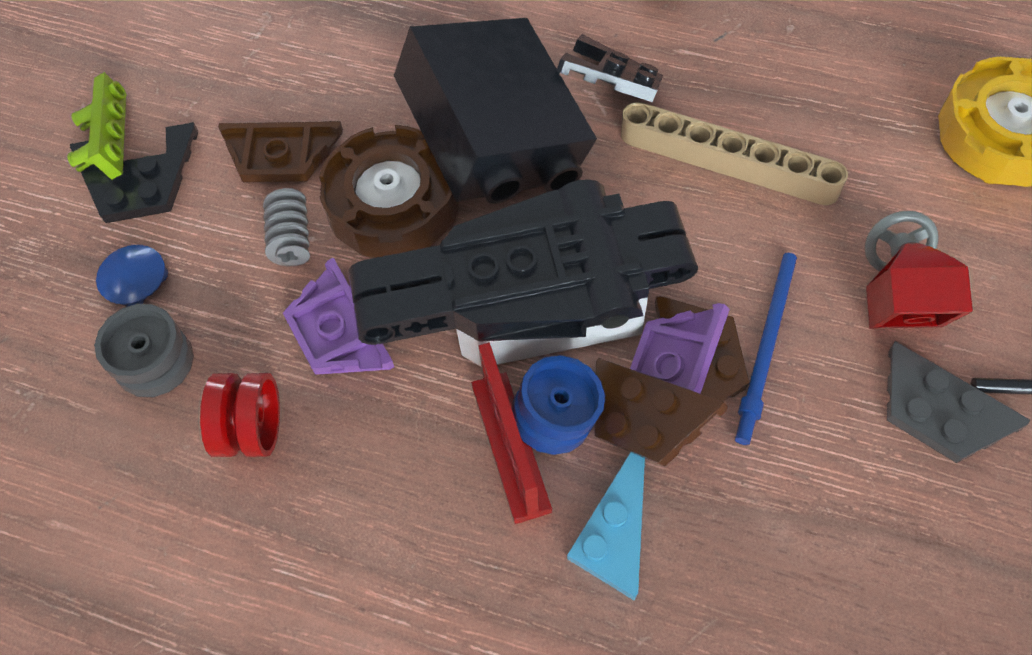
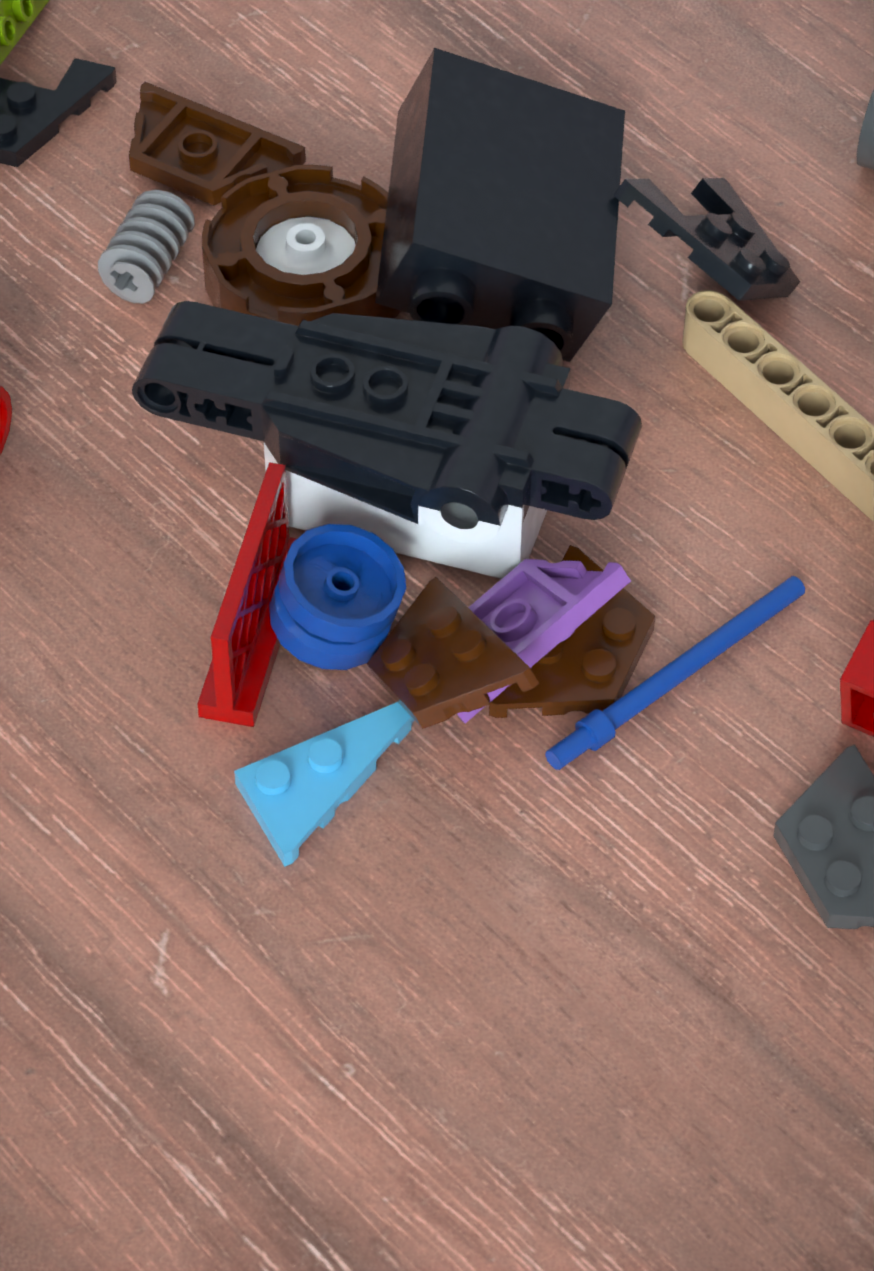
camera: 25 degrees right, 10 degrees down
(327, 327) = (103, 403): medium lavender wing -> none

